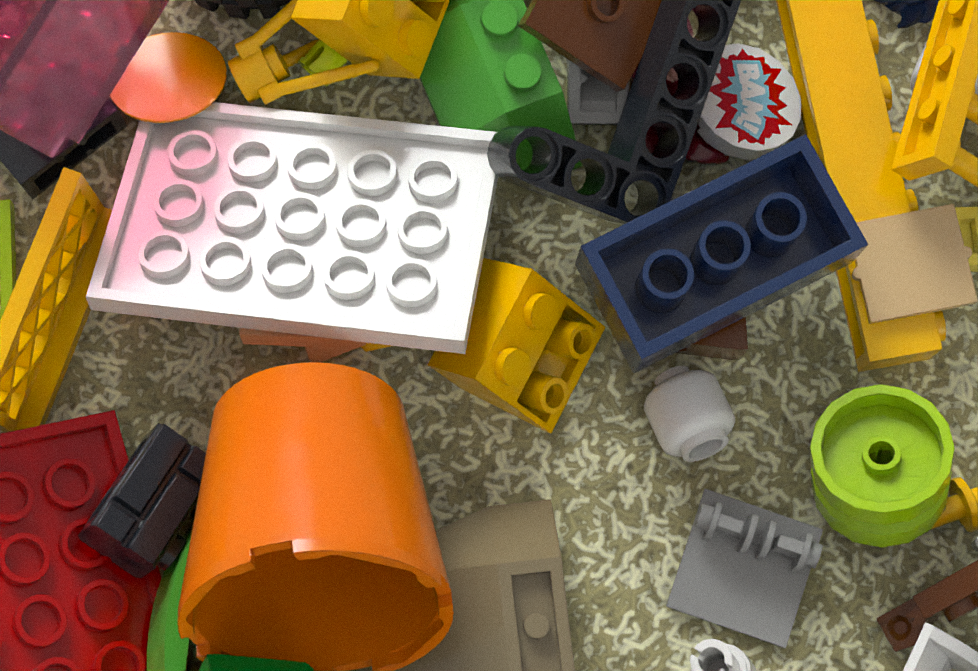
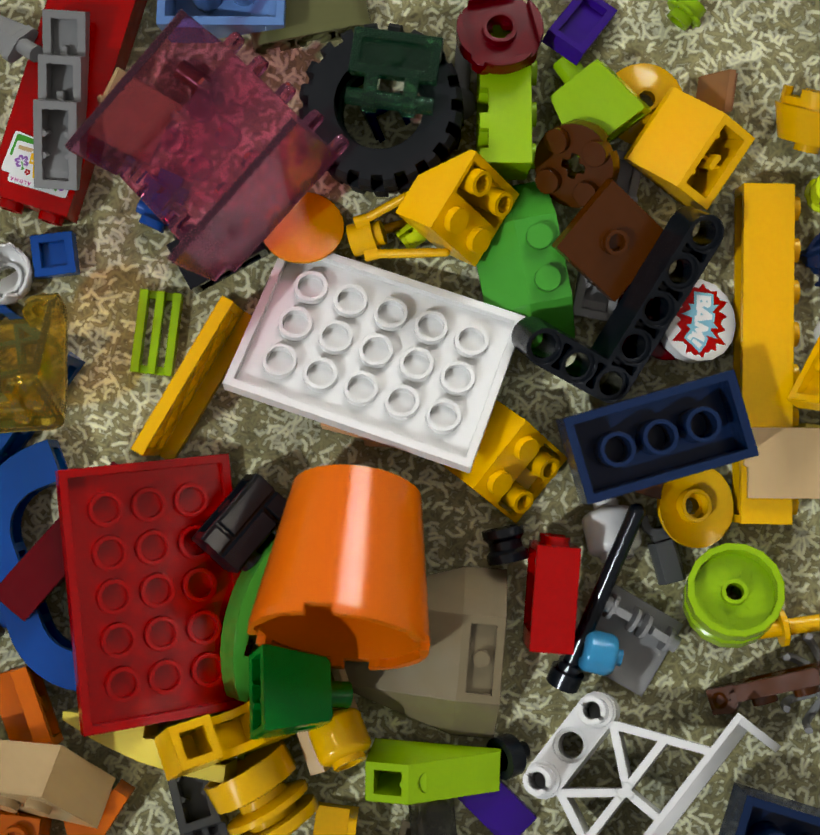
camera: 15 degrees right, 10 degrees up
(540, 462) = (505, 544): none -> black wheel
(620, 512) = (551, 594): none -> red window
(669, 628) = (565, 672): none -> black piece
(709, 589) = (600, 653): none -> dark azure piece
(769, 426) = (663, 554): none -> dark grey bar
(817, 339) = (710, 513): none -> yellow dish

